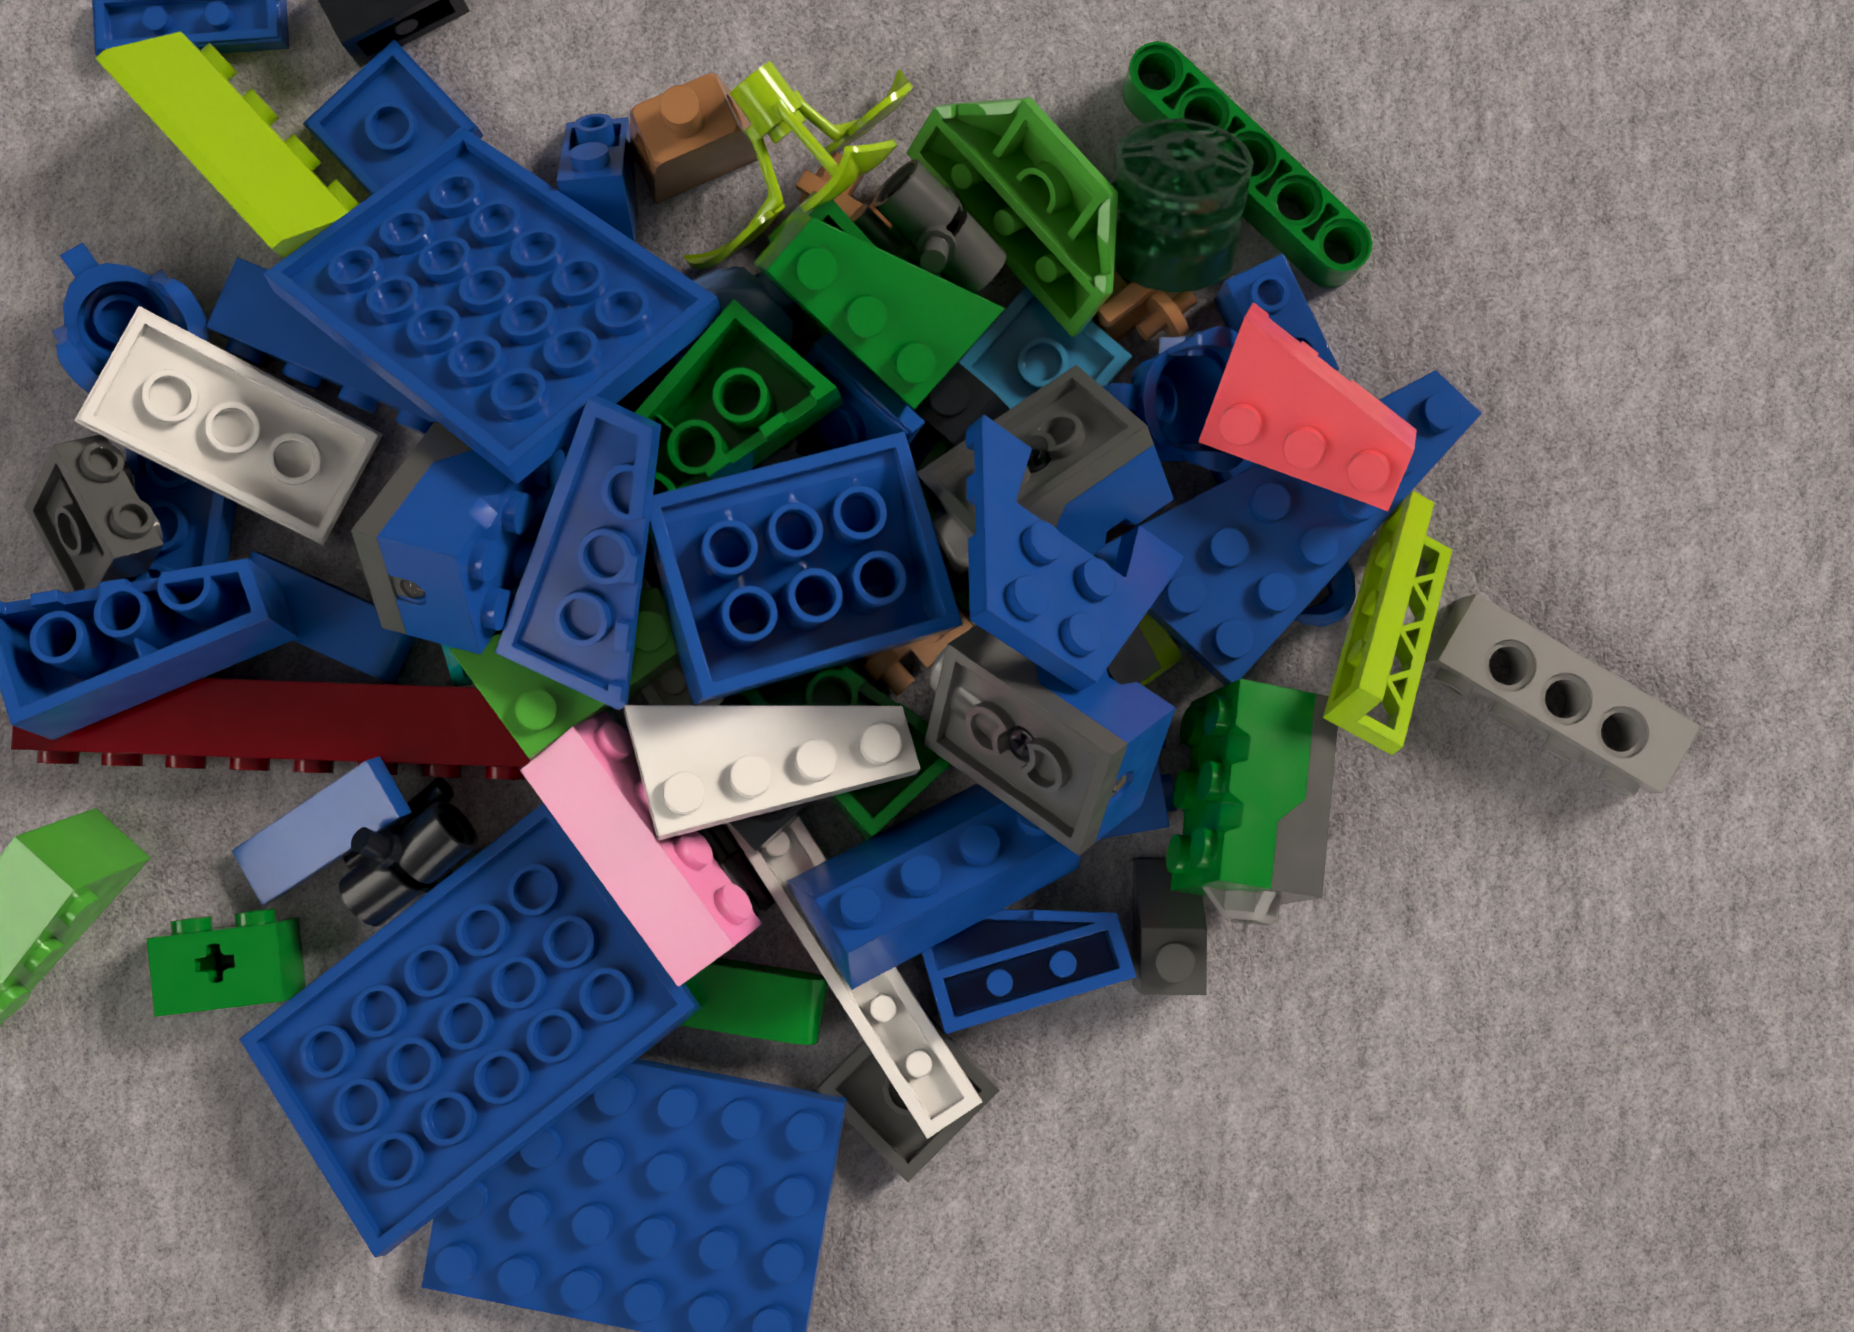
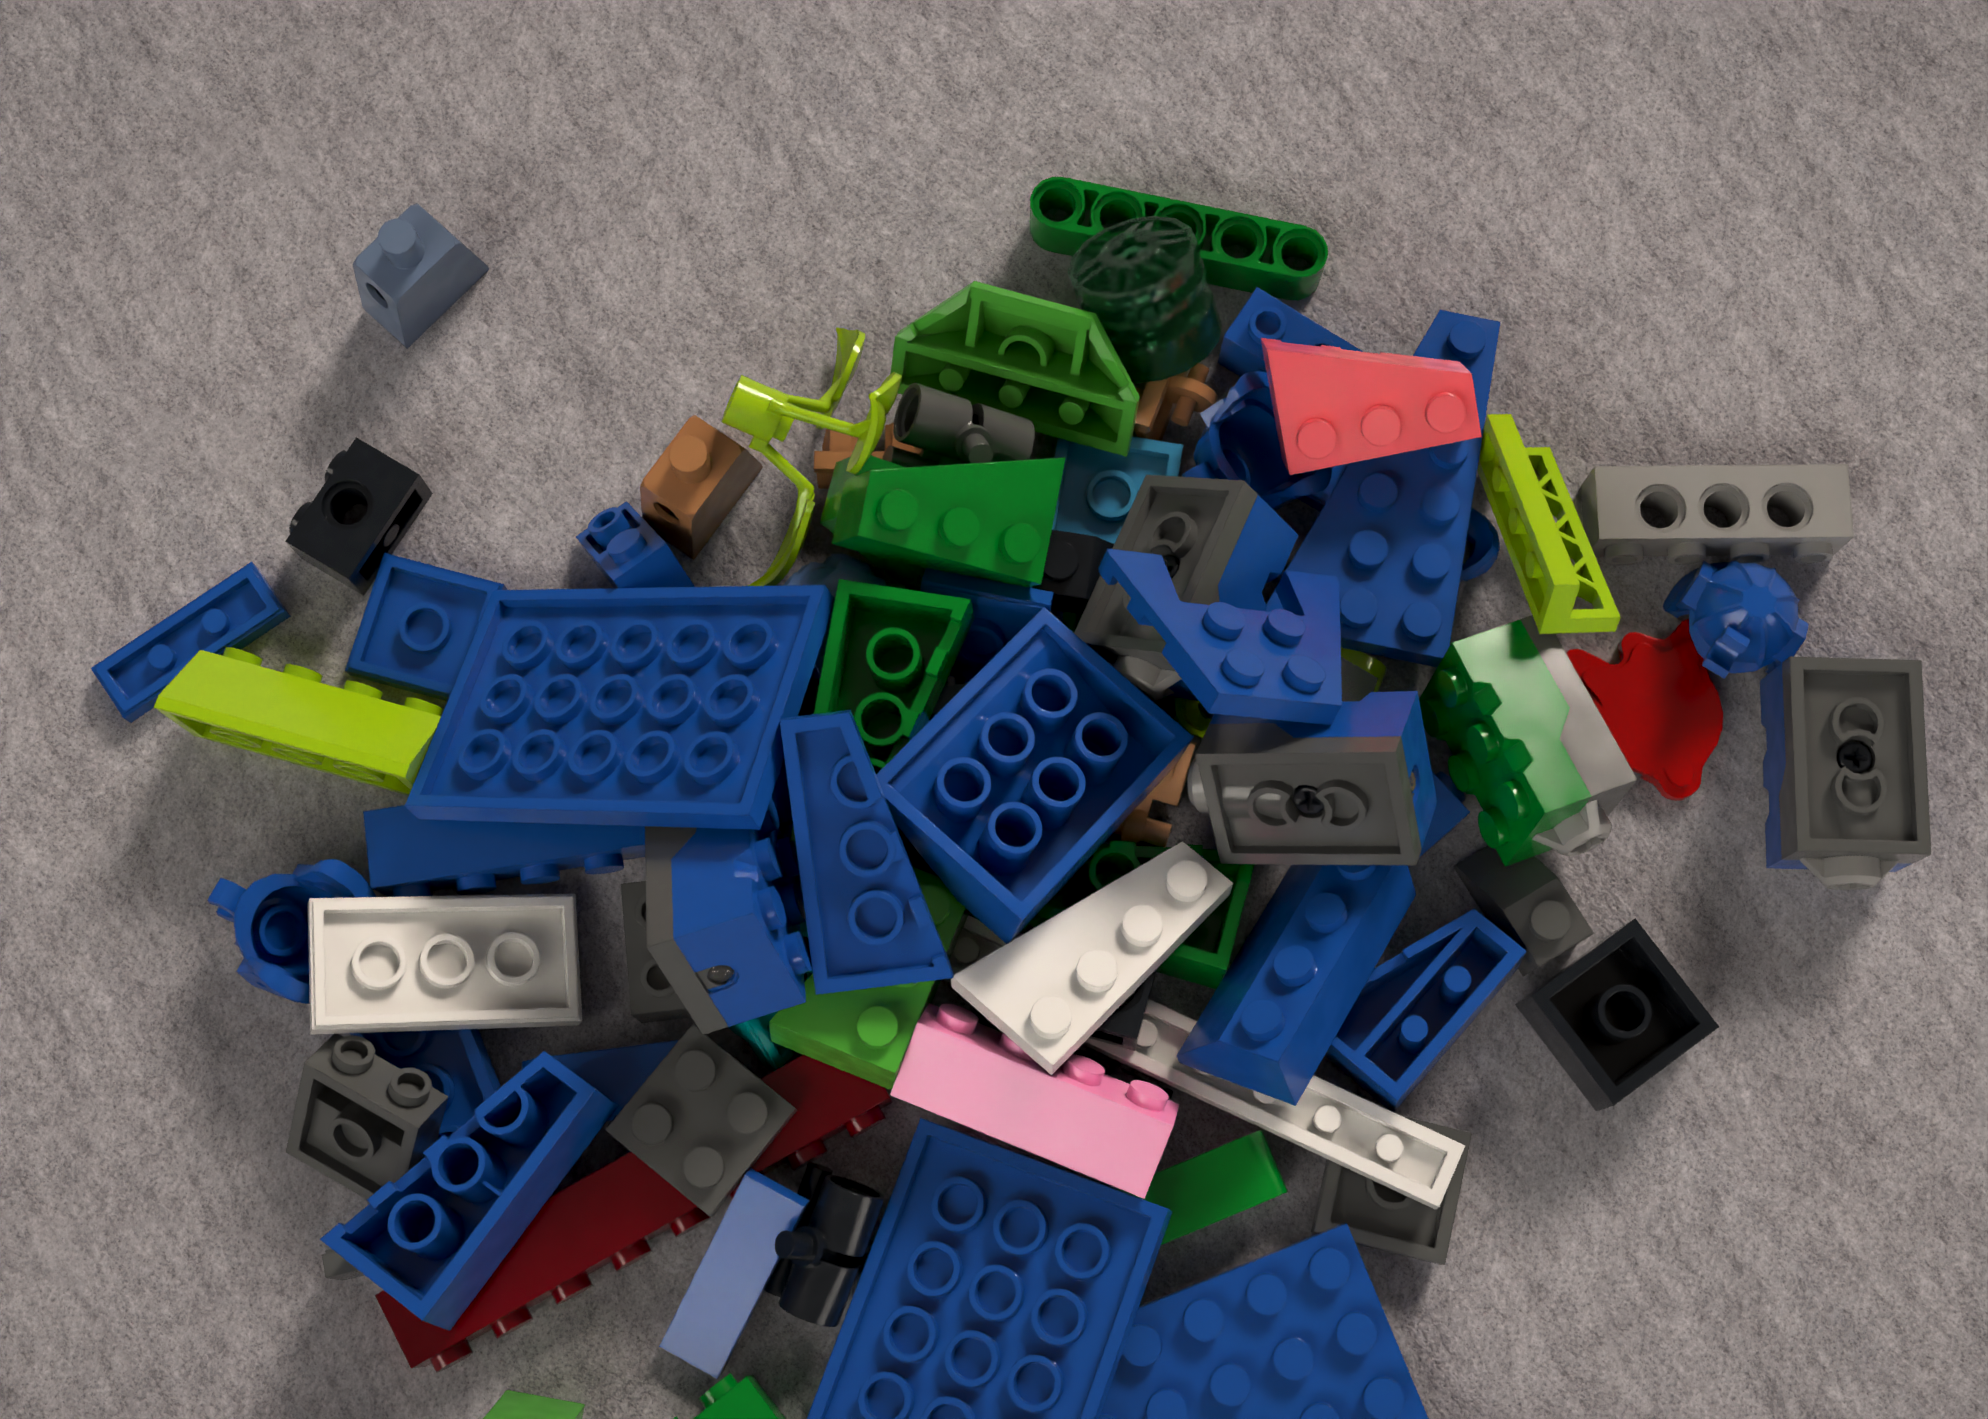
camera: 30 degrees left, 10 degrees down
(359, 694) = (701, 1120): none -> dark grey plate
(1183, 1072) = (1617, 1016): none -> black brick
(1395, 828) = (1657, 707): none -> red tile
(1515, 799) = (1738, 616): none -> blue helmet
(1518, 988) = (1845, 768): none -> dark grey piece

